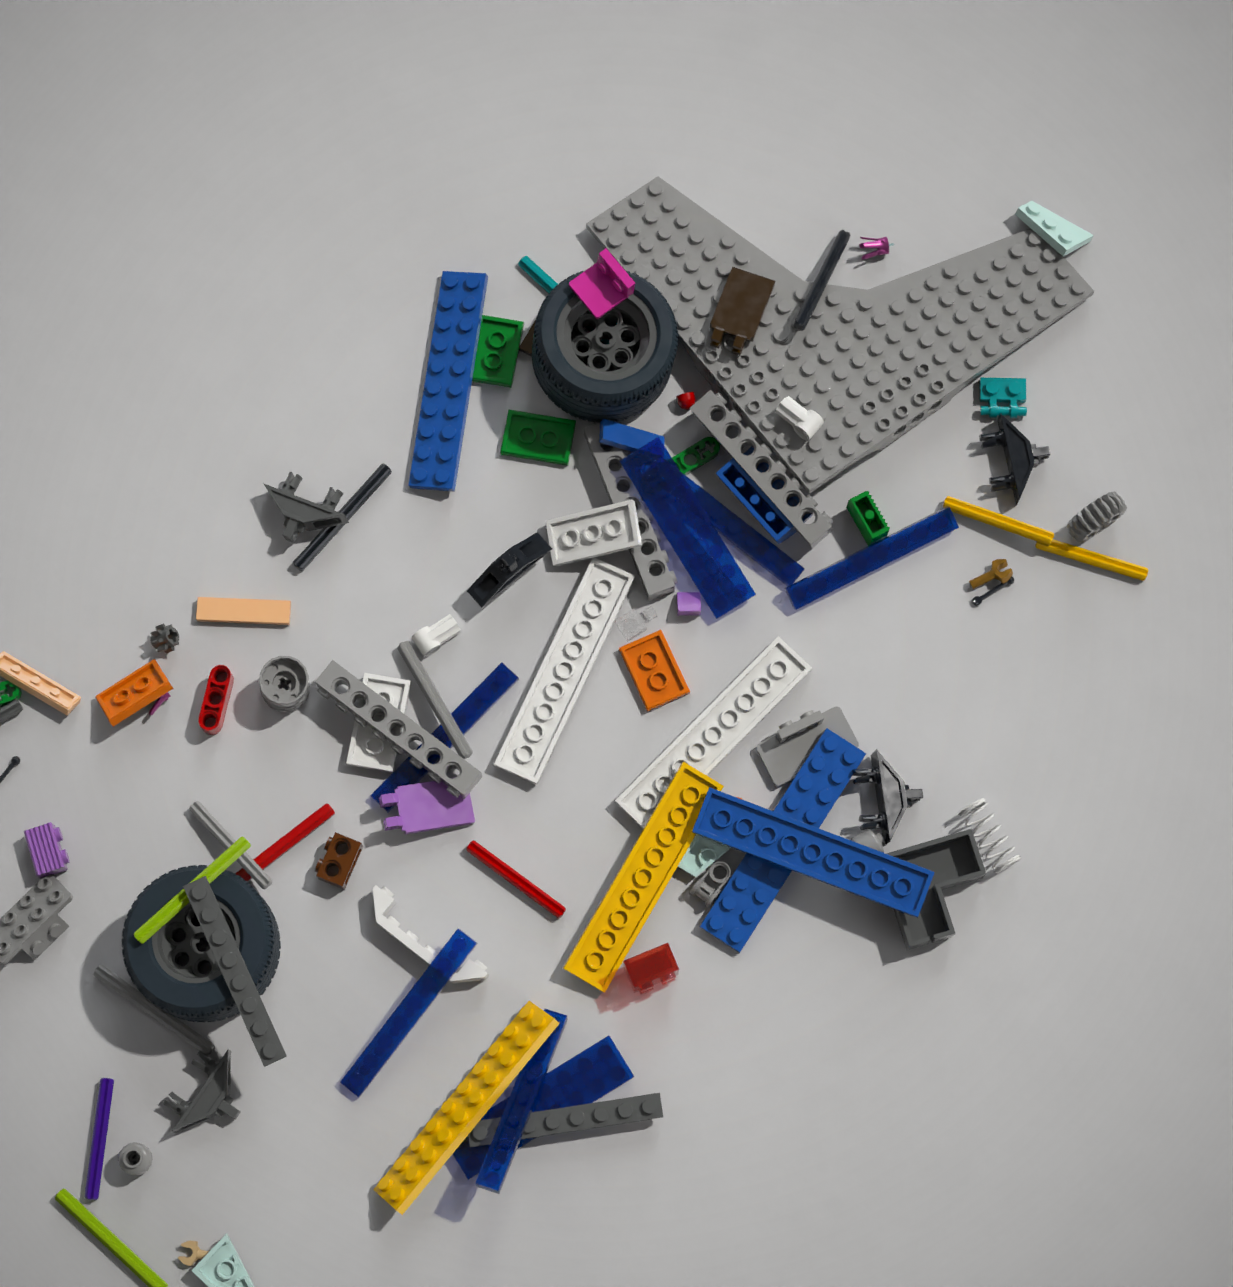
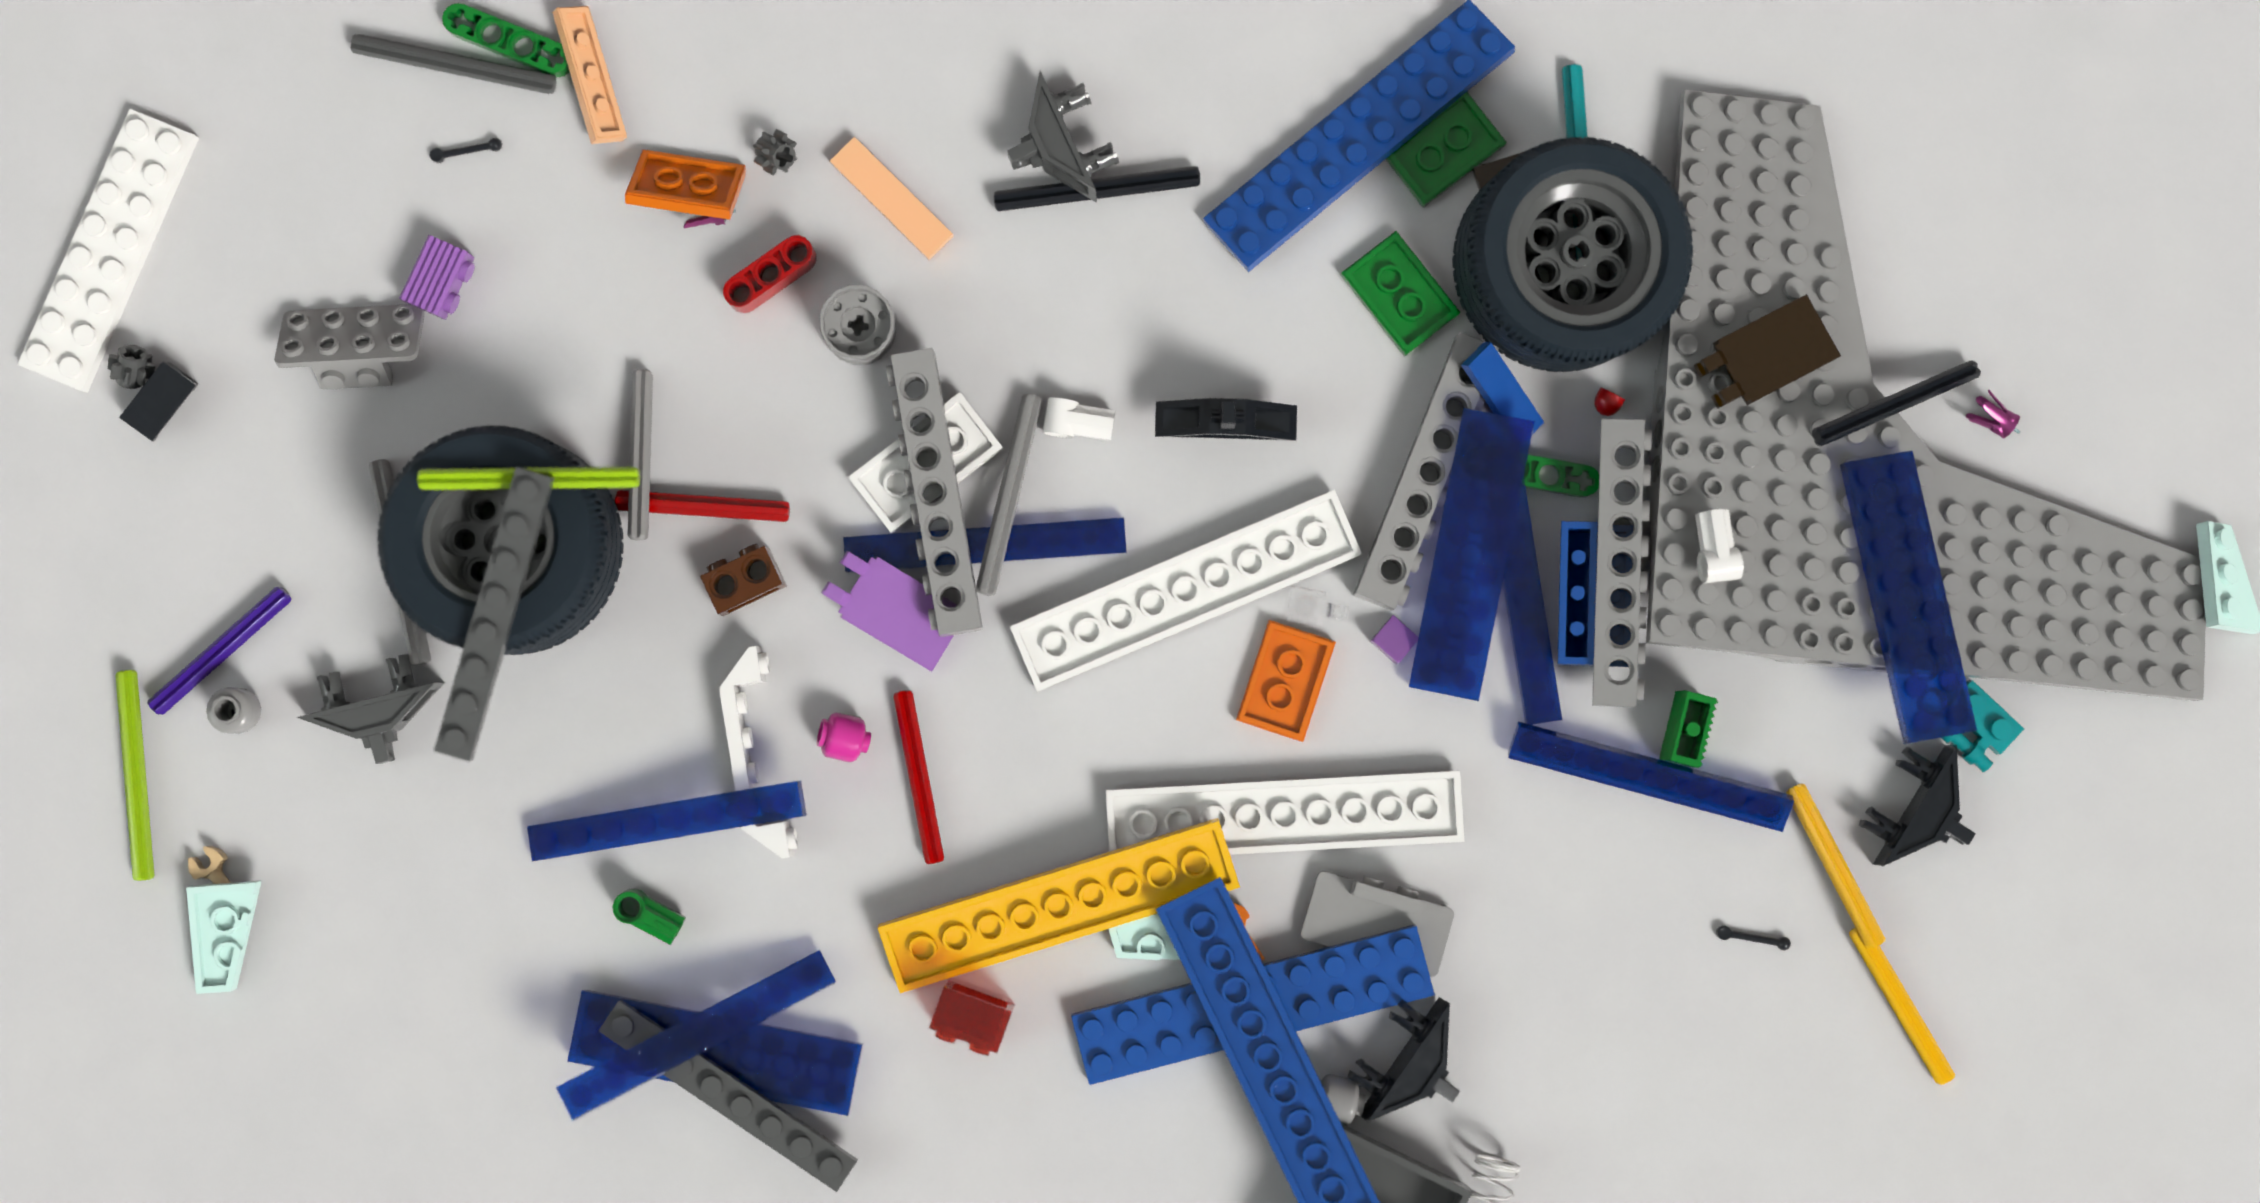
camera: 40 degrees right, 10 degrees up
(445, 1068) = (652, 917): none -> green piece
(460, 892) = (843, 737): none -> dark pink head
(465, 1107) = (634, 982): yellow plate -> none
(593, 533) = (1360, 464): white plate -> none
(603, 285) = (1631, 186): dark pink bracket -> none
(710, 884) = (1126, 980): light grey piece -> none
(911, 363) = (1908, 597): none -> clear blue plate
(994, 573) = (1770, 920): pearl gold bar -> none
(1096, 516) = (1953, 967): light grey gear -> none

